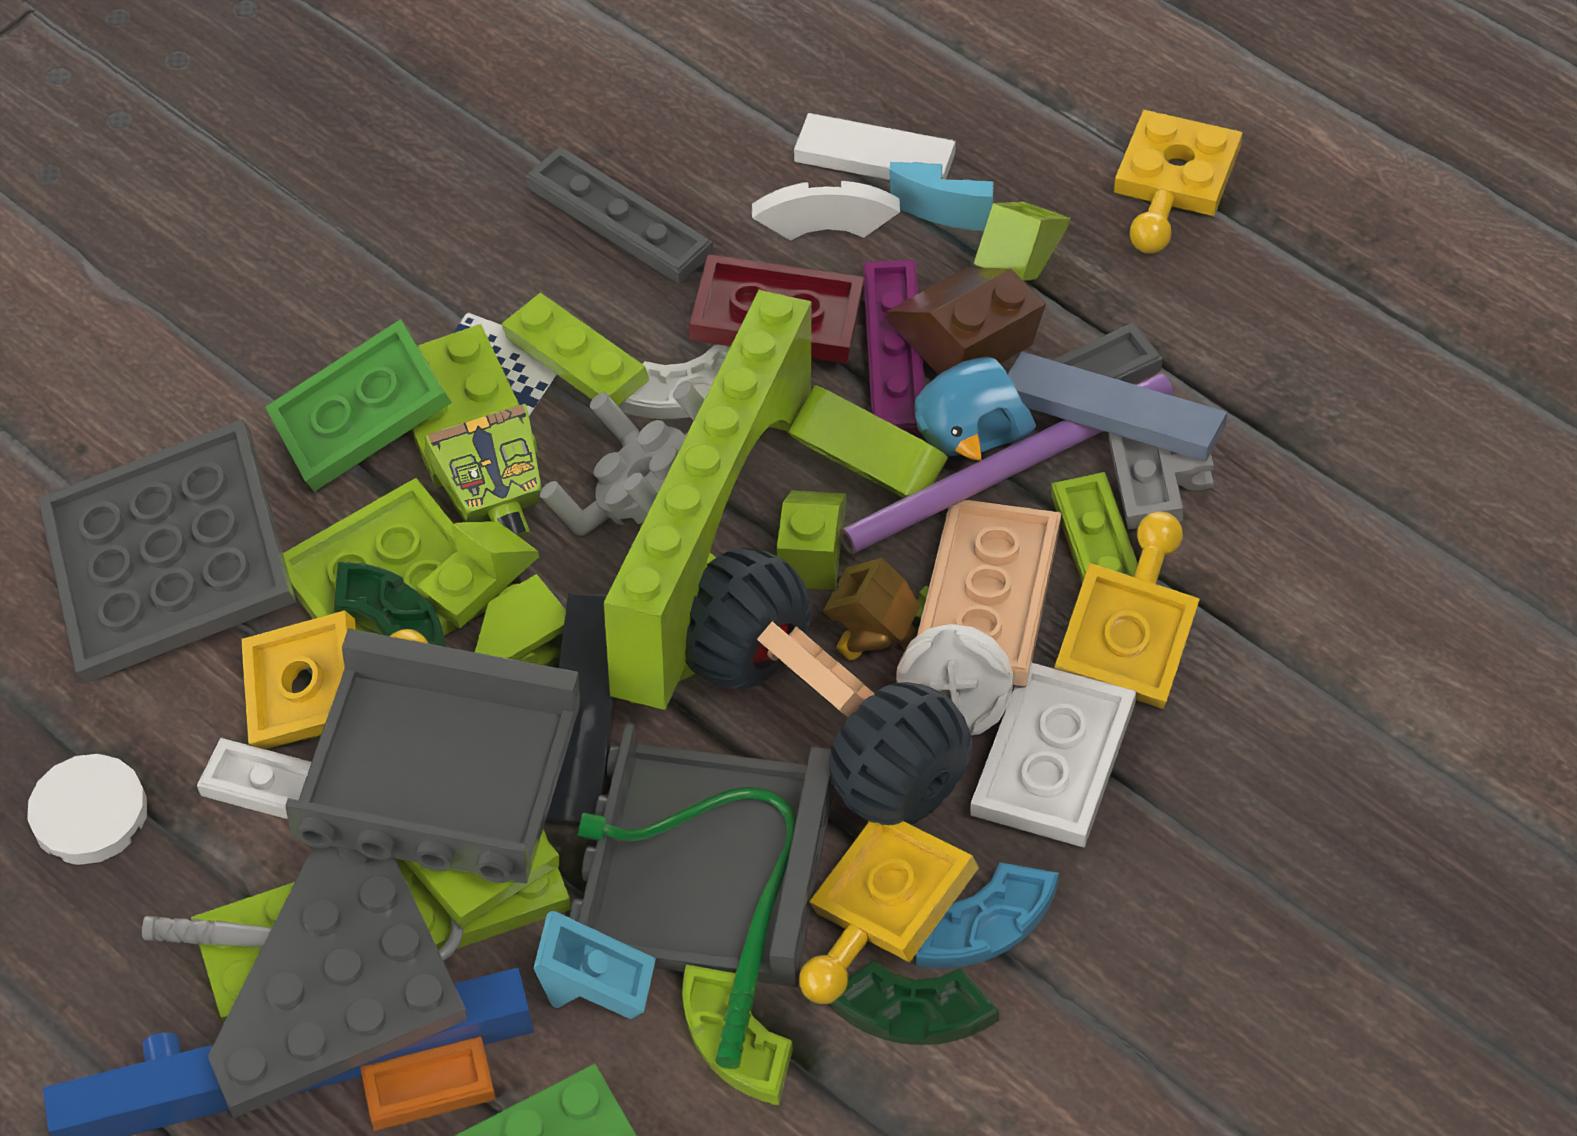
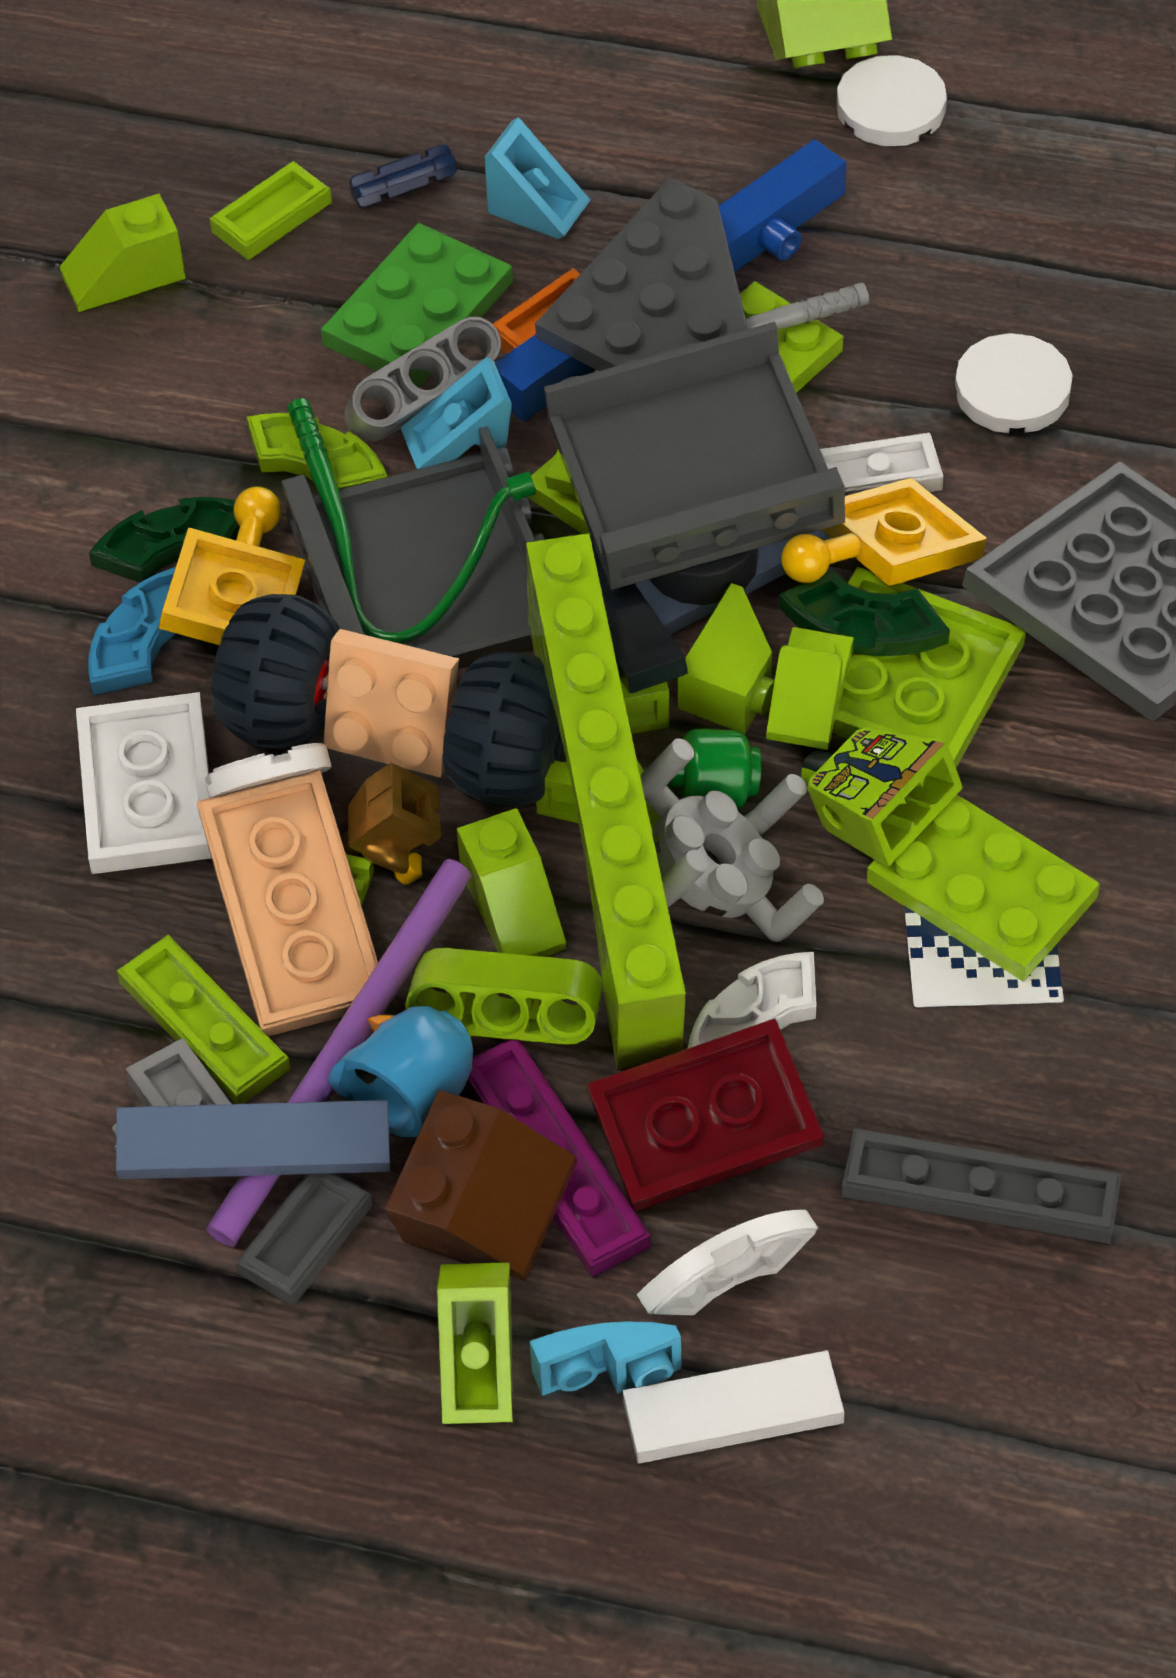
camera: 150 degrees right, 0 degrees up
(357, 405) = (1068, 801): bright green plate -> none
(574, 350) = (897, 977): lime plate -> none
(590, 554) = (720, 763): none -> green head
(597, 1030) = (397, 392): none -> light grey beam
(1129, 626) = (121, 914): yellow plate -> none
(1192, 187) = (311, 1522): yellow plate -> none

